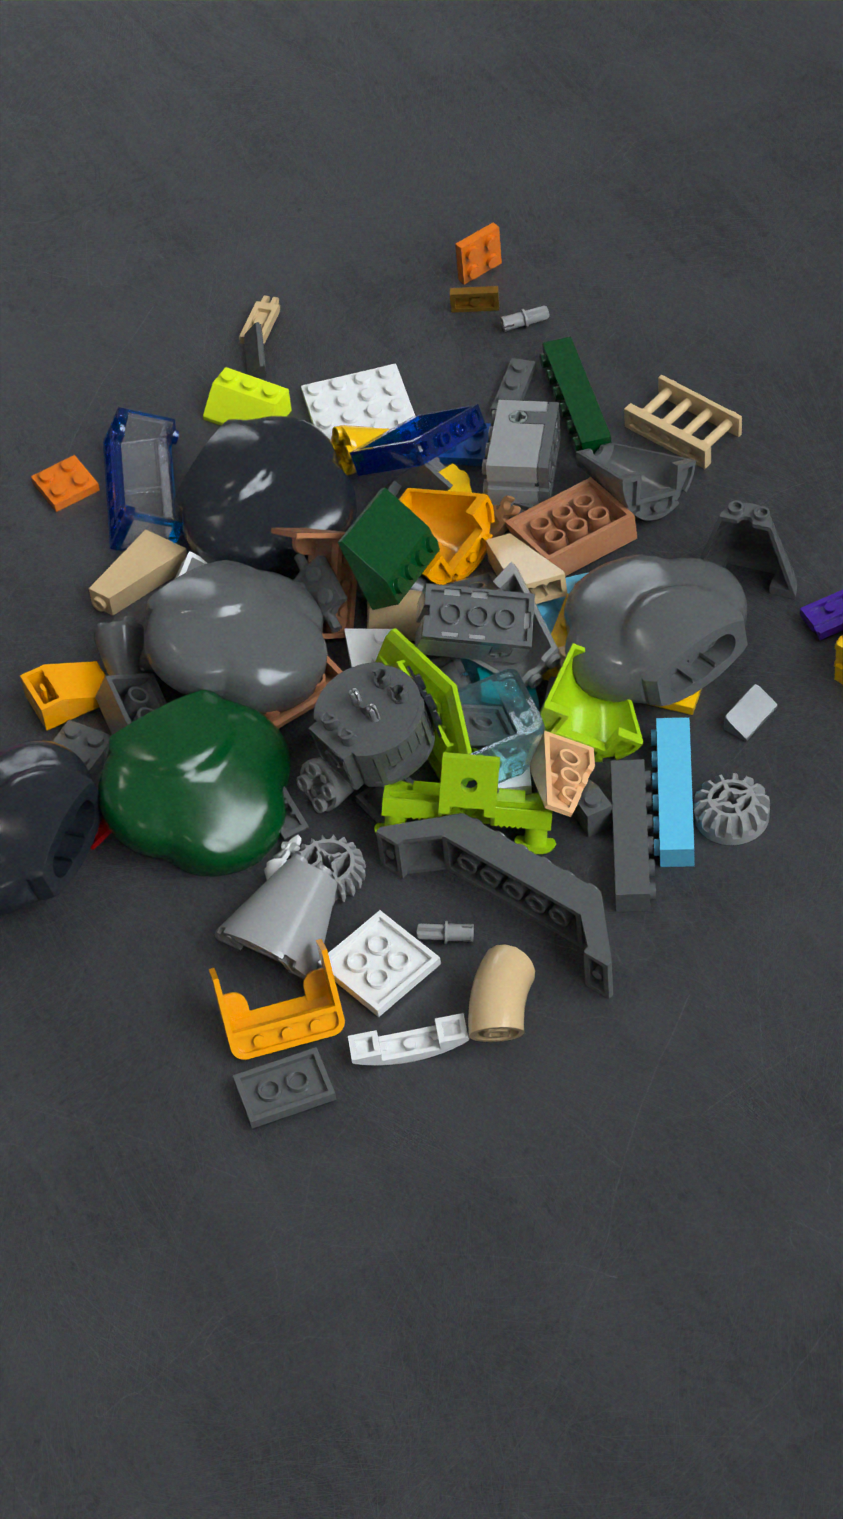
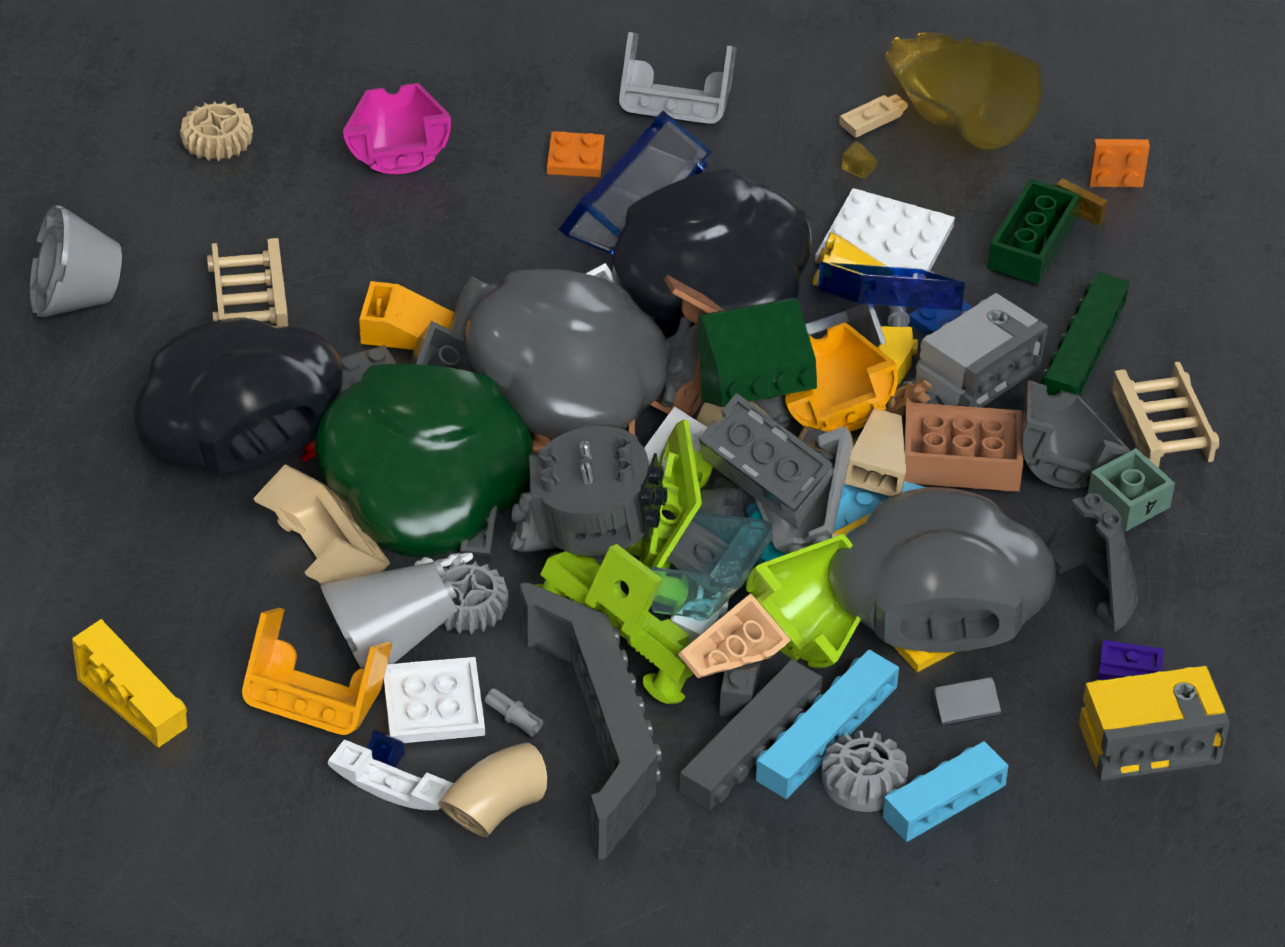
camera: 30 degrees right, 5 degrees down
(124, 389) = (643, 97): none -> light grey windscreen
(136, 572) = (570, 251): tan slope -> none
(142, 1107) = (126, 684): none -> yellow wedge
(178, 890) = (323, 524): none -> tan windscreen
(244, 398) = (791, 169): neon yellow slope -> none
(255, 351) = (840, 137): dark grey slope -> none
(284, 363) = (858, 160): none -> clear yellow slope
(284, 1087) = (256, 747): dark grey plate -> none
(319, 258) = (968, 87): none -> clear yellow windscreen
(382, 1021) = (386, 748): none -> clear blue slope
(466, 340) = (1033, 231): none -> dark green brick
(515, 381) = (1047, 295): dark grey plate -> none
(524, 318) = (1111, 244): light grey axle -> none
(714, 485) = (1133, 487): none -> sand green brick
(799, 787) = (944, 791): none -> medium azure brick

